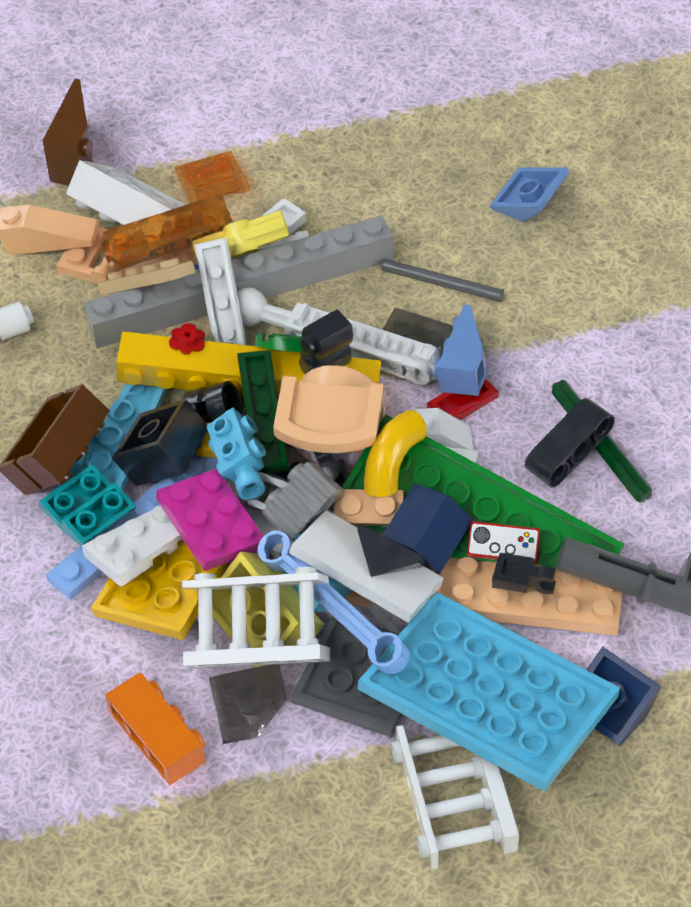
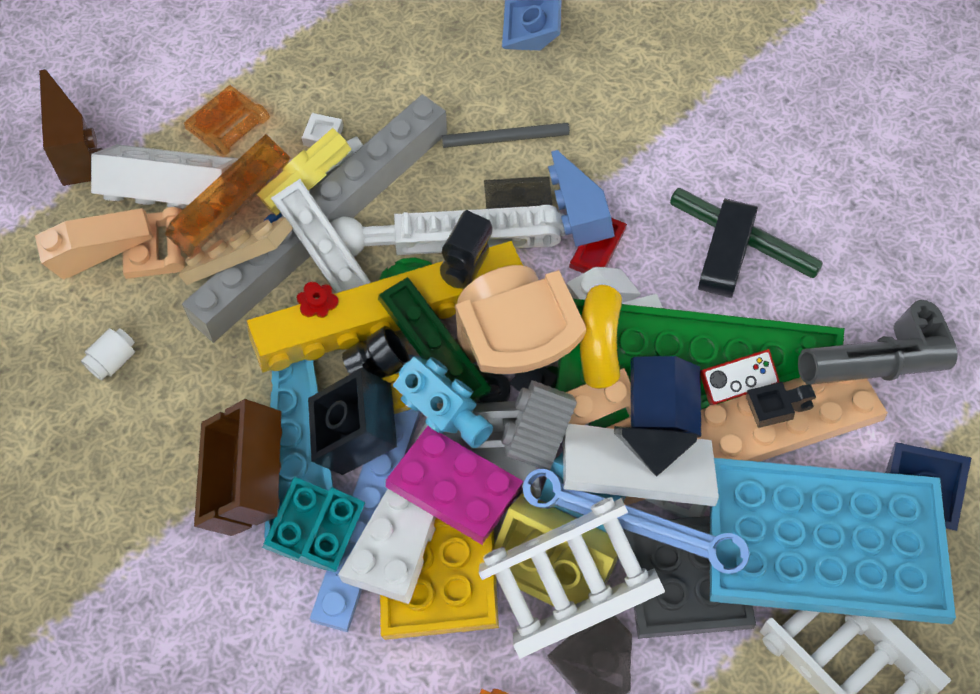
camera: 30 degrees left, 10 degrees up
(279, 342) = (411, 261): green tile -> none

